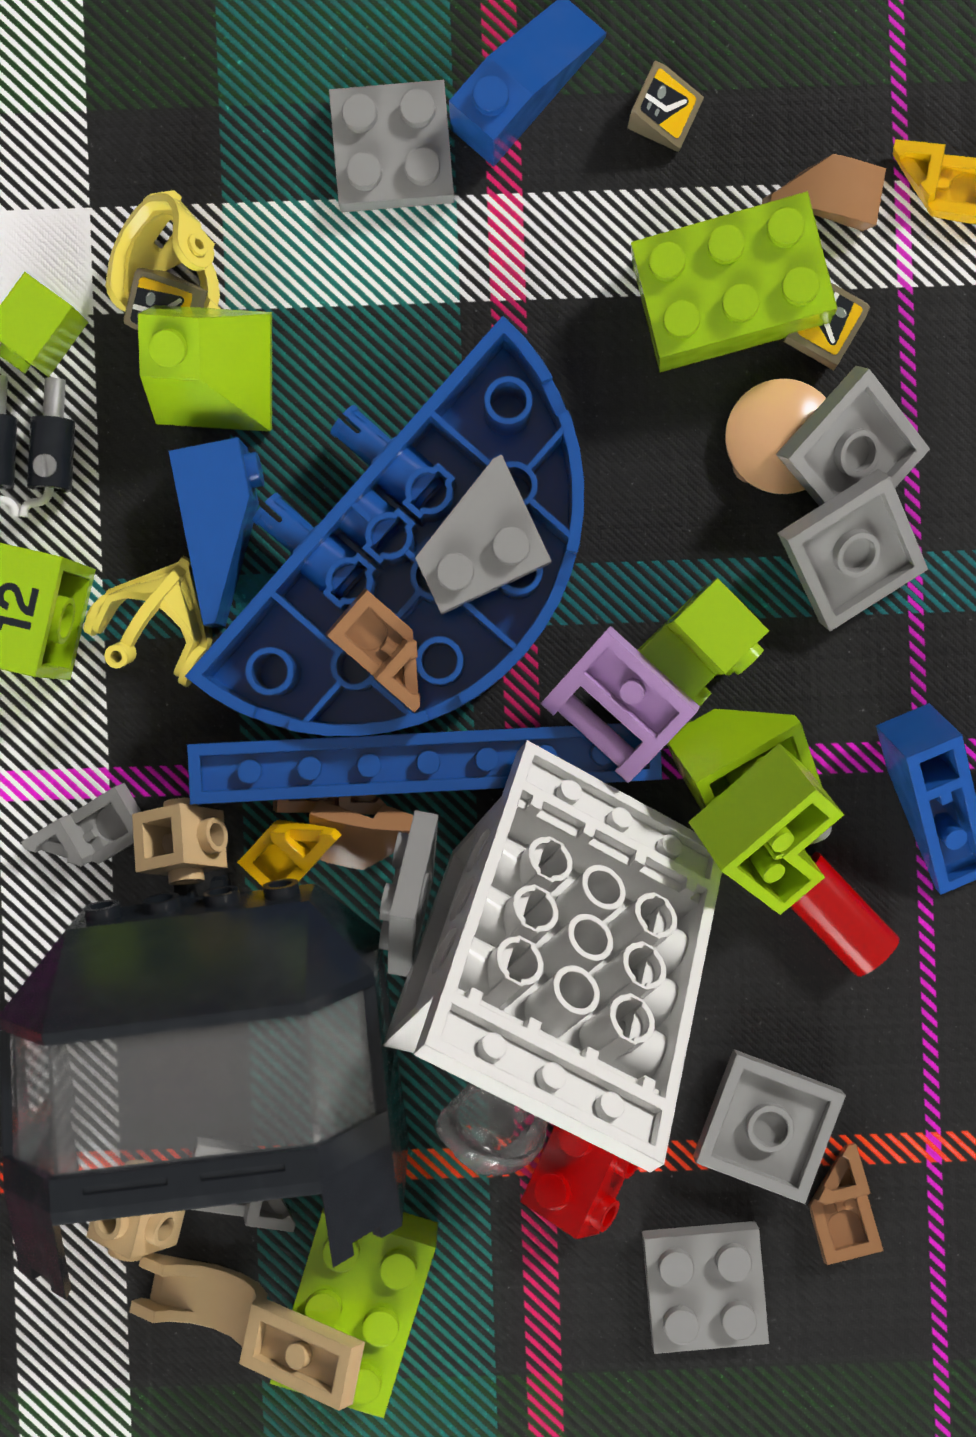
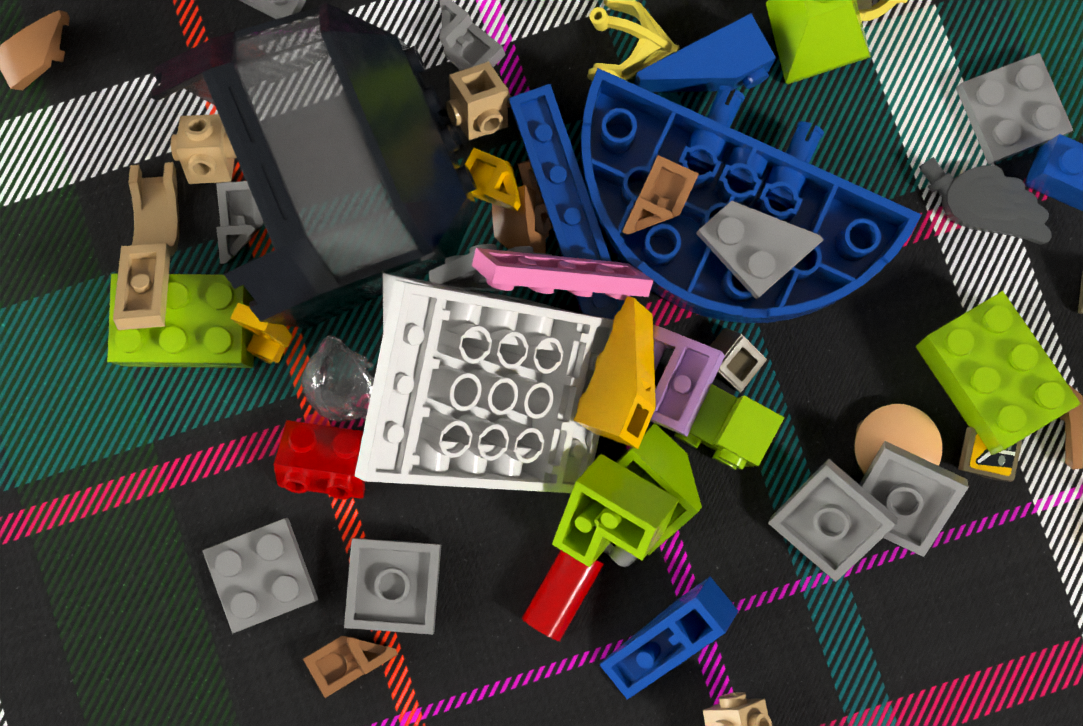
camera: 75 degrees right, 5 degrees down
(421, 1203) = (267, 340): none -> yellow slope
(448, 813) = (550, 272): none -> bright pink plate
(503, 218) = (989, 202): none -> dark grey animal
(606, 604) = (740, 359): none -> dark tan slope
(610, 768) = (623, 383): none -> yellow slope

